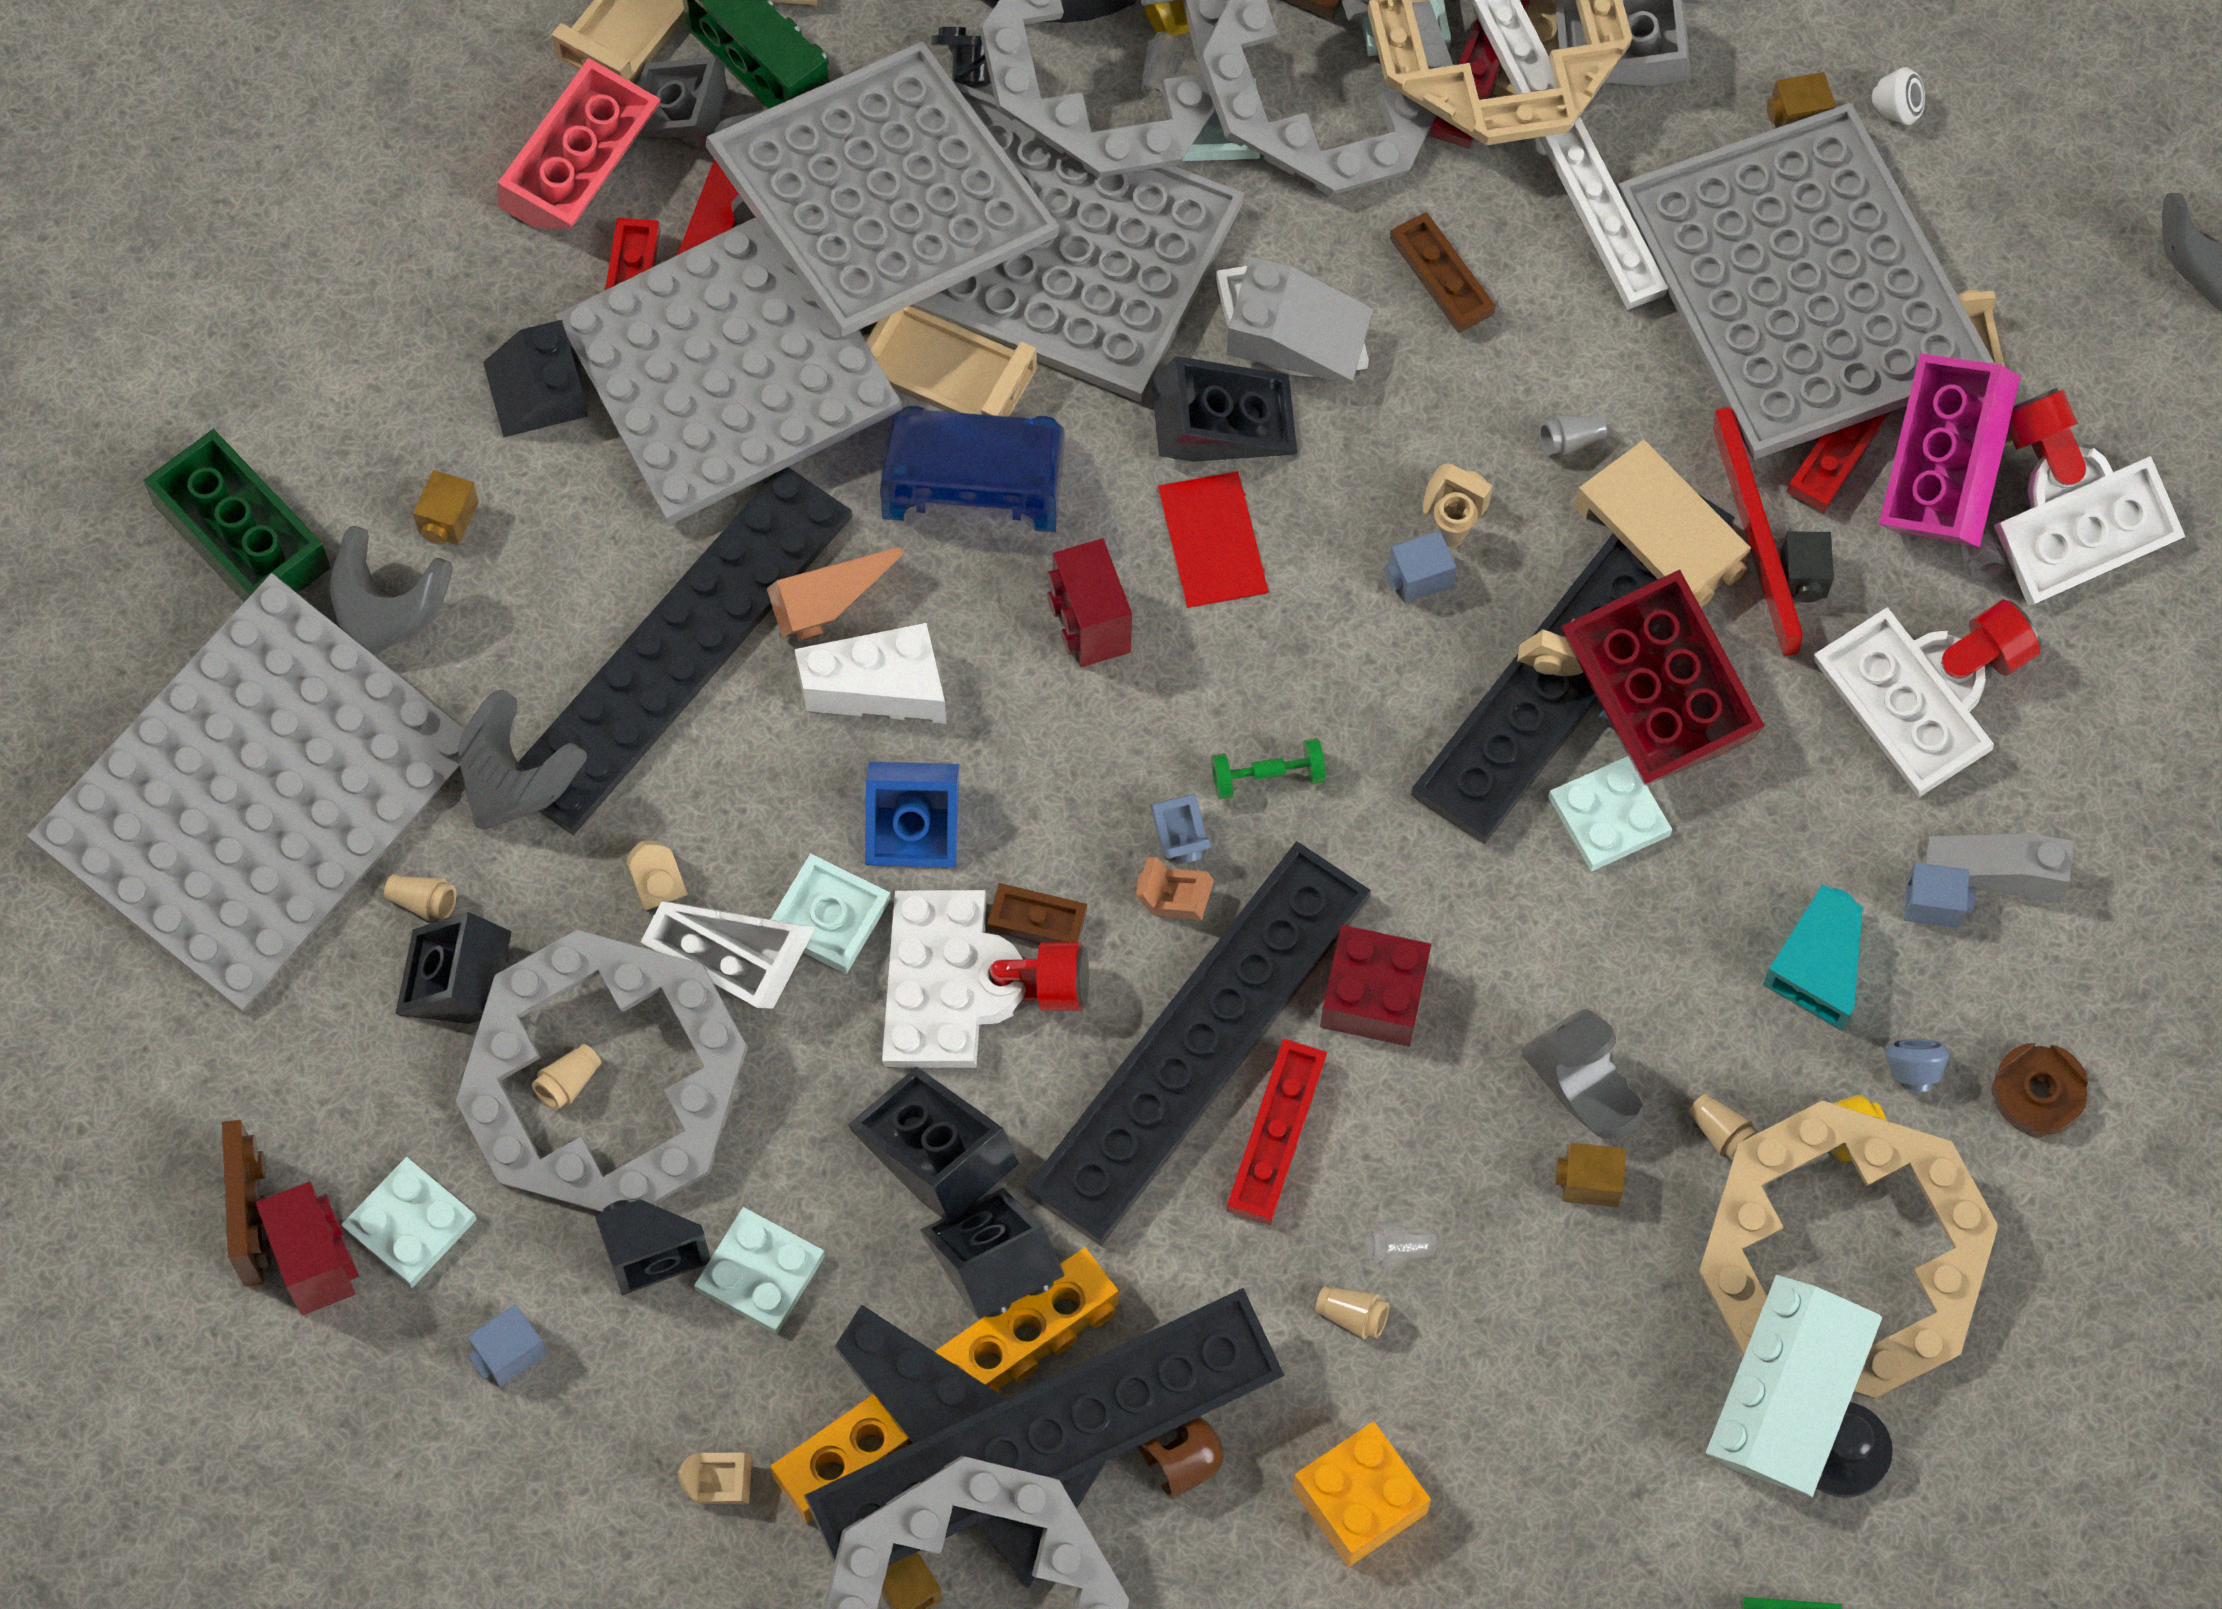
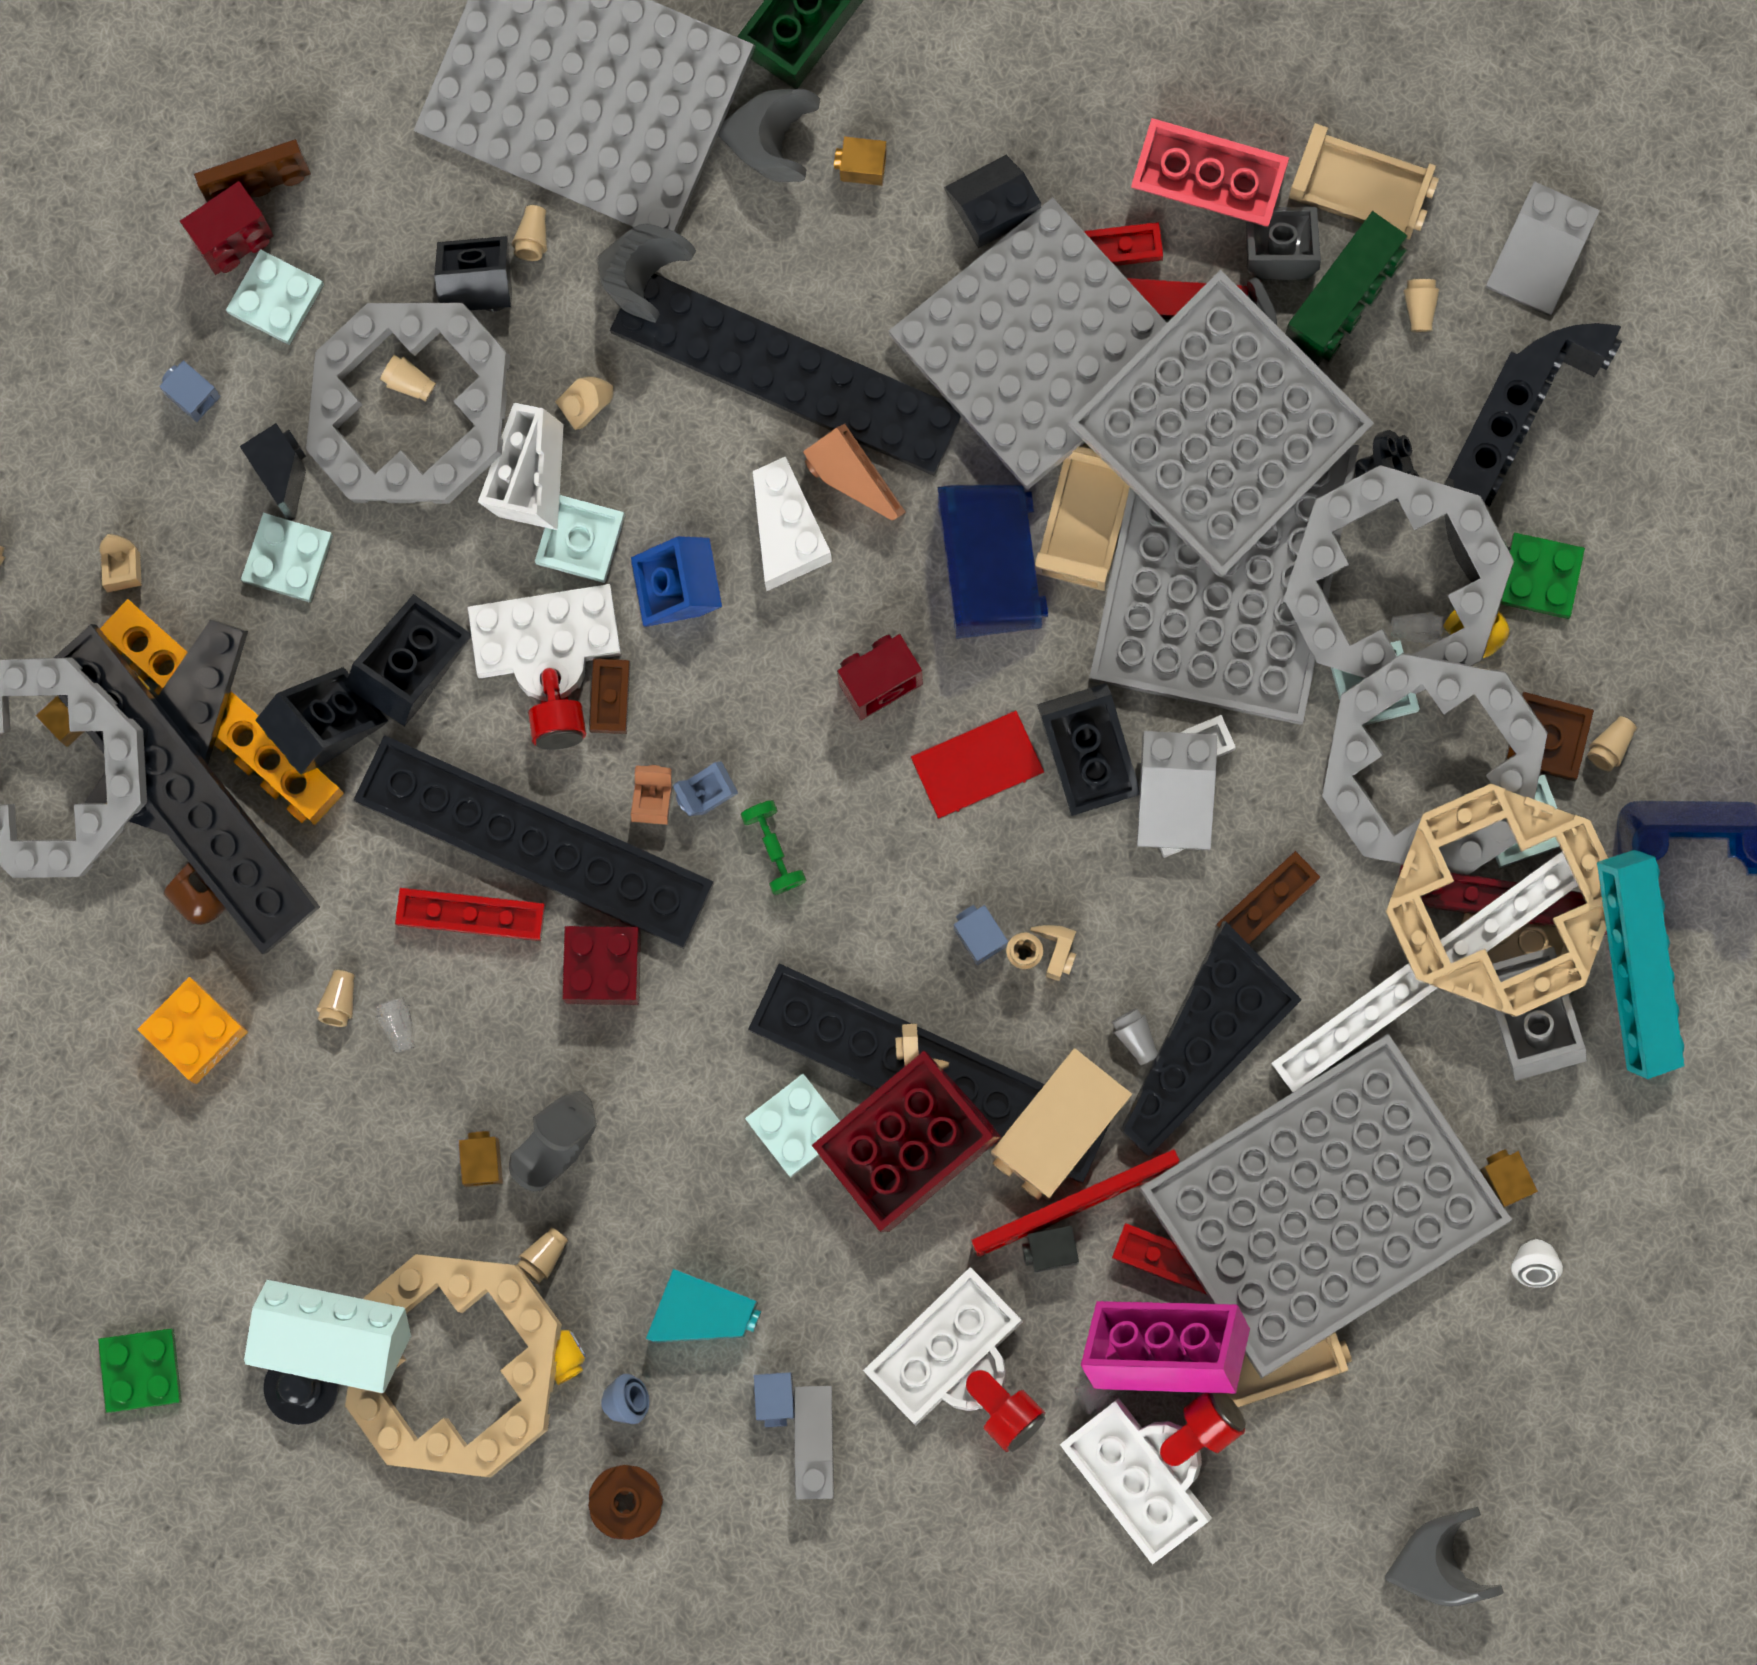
camera: 85 degrees right, 15 degrees up
(1576, 344) = (1218, 1025): none -> black wing

